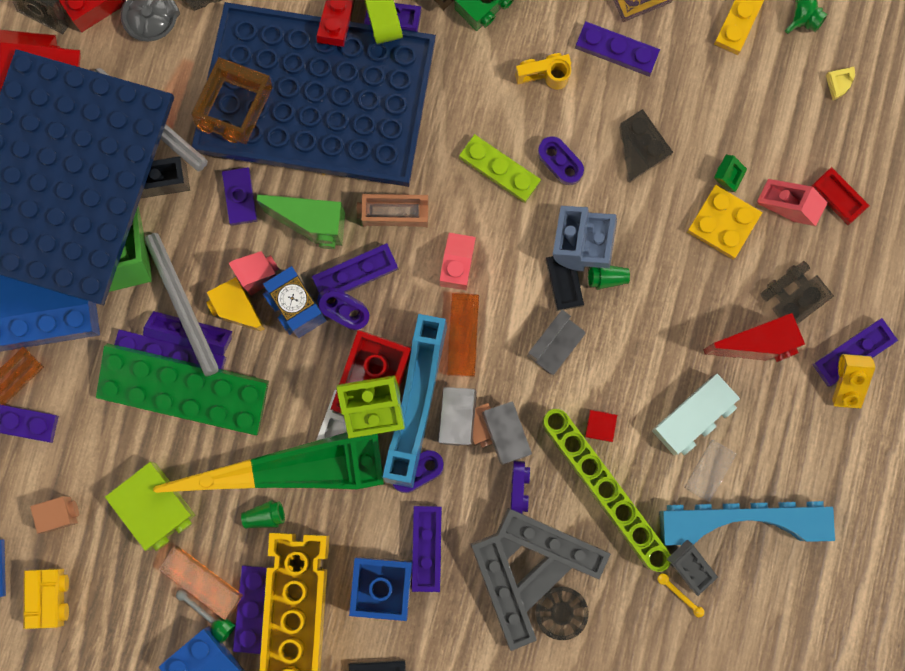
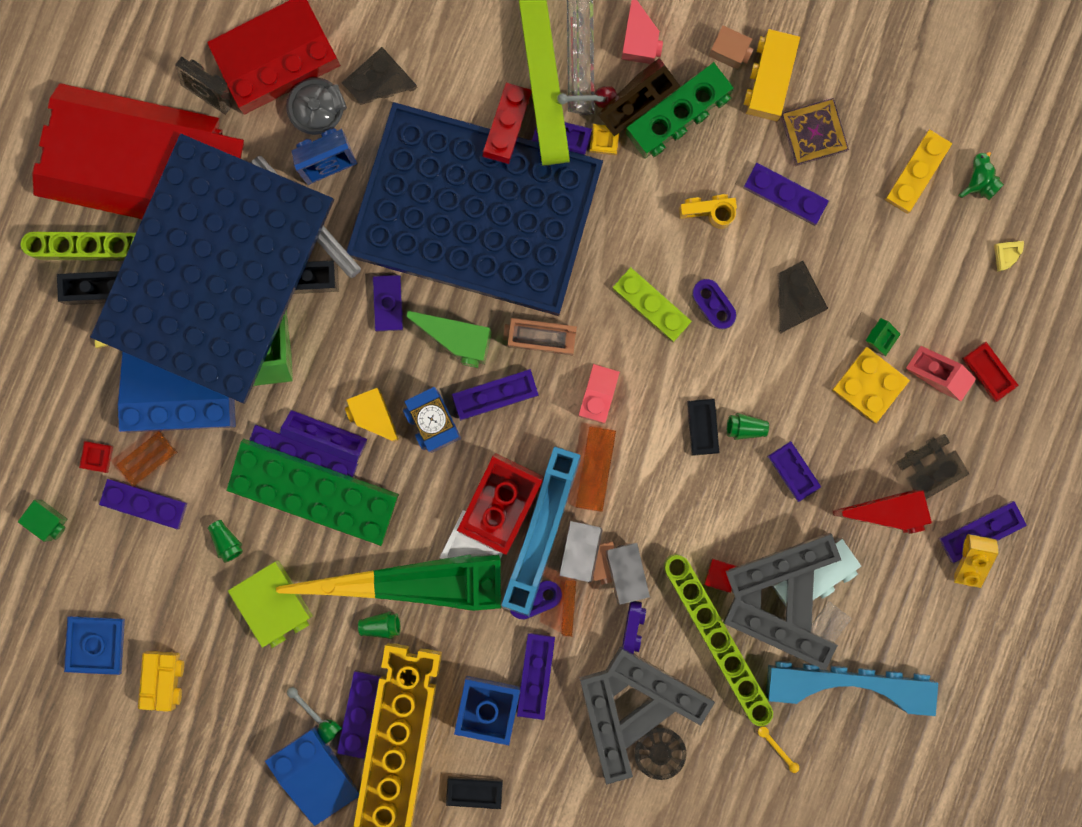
camera: 10 degrees right, 5 degrees up
(54, 514) = (177, 601): nougat brick -> none
(99, 450) = (224, 541): none -> green cone
(162, 61) = (323, 156): none -> blue slope
(181, 304) = (320, 408): light grey axle -> none
(200, 582) = (312, 683): clear orange tile -> none
(241, 77) = (402, 186): clear orange window -> none
(254, 271) = (396, 383): coral slope -> none
(342, 307) = (478, 429): dark purple plate -> none
(371, 406) = (497, 535): lime brick -> none
(434, 17) = (603, 140): none -> yellow tile
(451, 474) = (568, 607): none -> clear orange tile
(556, 343) = (687, 488): flat silver panel -> none
(584, 238) = (727, 388): sand blue brick -> none
(660, 314) = (794, 471): none -> dark purple plate
(682, 472) = (797, 567): none -> dark grey plate
(692, 567) = (793, 725): dark grey plate -> none

